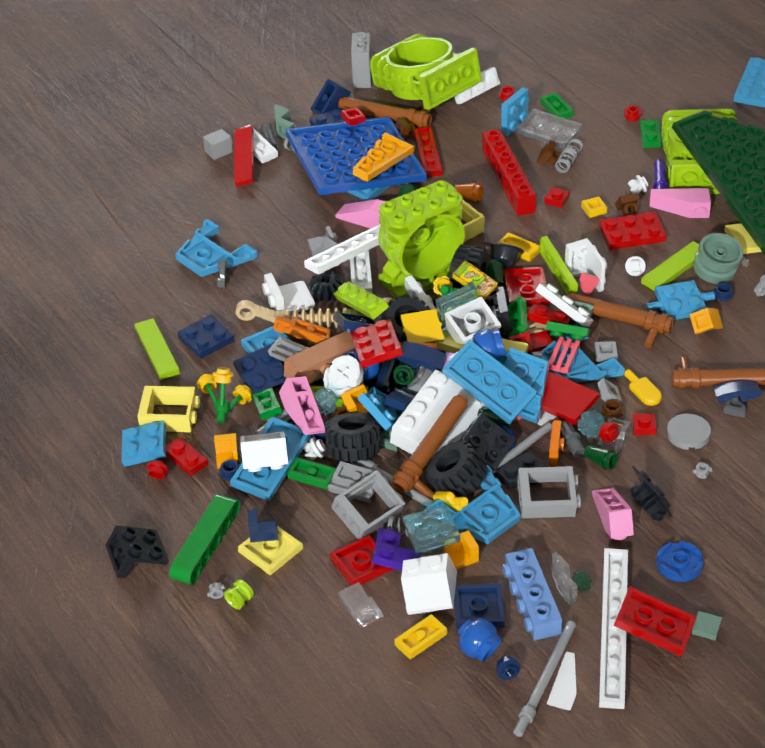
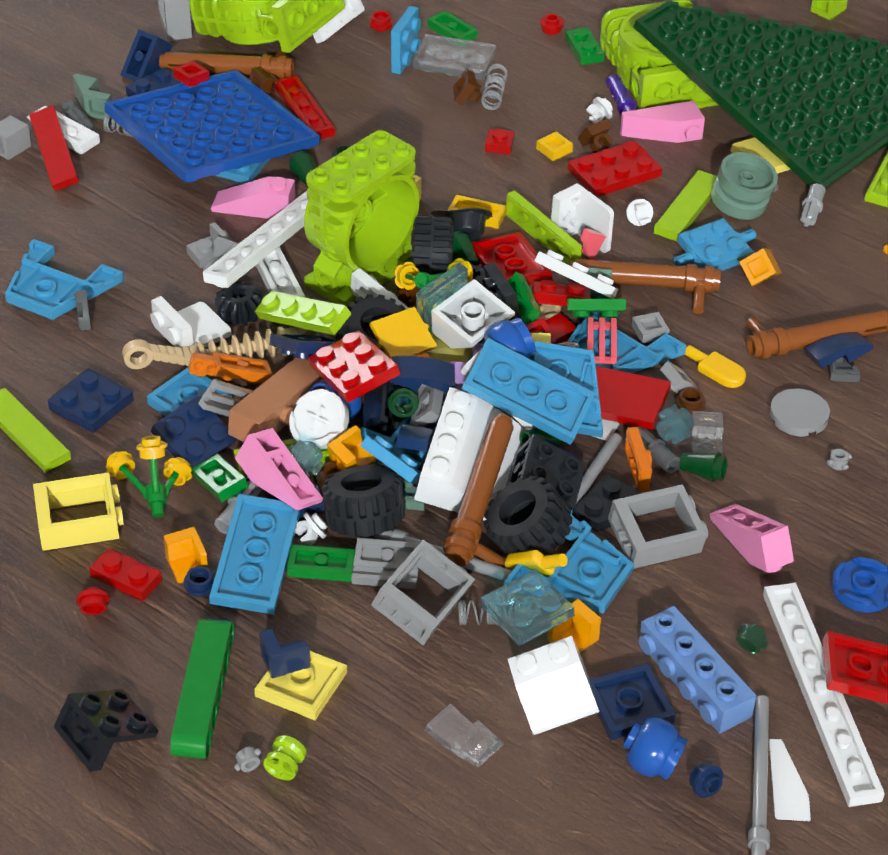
camera: 20 degrees left, 0 degrees up
(143, 443) = (58, 567): dark azure plate -> none
(264, 451) = (249, 543): white slope -> none
(356, 563) = (438, 673): red tile -> none
(383, 156) = (254, 120): light orange wing -> none
(388, 552) = (475, 653): dark purple plate -> none
(420, 636) = (568, 762): yellow plate -> none
(469, 274) = (446, 255): tile -> none
(508, 172) = (426, 118): red brick -> none
(562, 579) = (731, 646): clear slope -> none
(609, 432) = (705, 430): red plate -> none
(644, 424) = (738, 413): red plate -> none
(650, 497) = (793, 503): black hinge -> none
(723, 292) = (764, 227): dark blue plate -> none

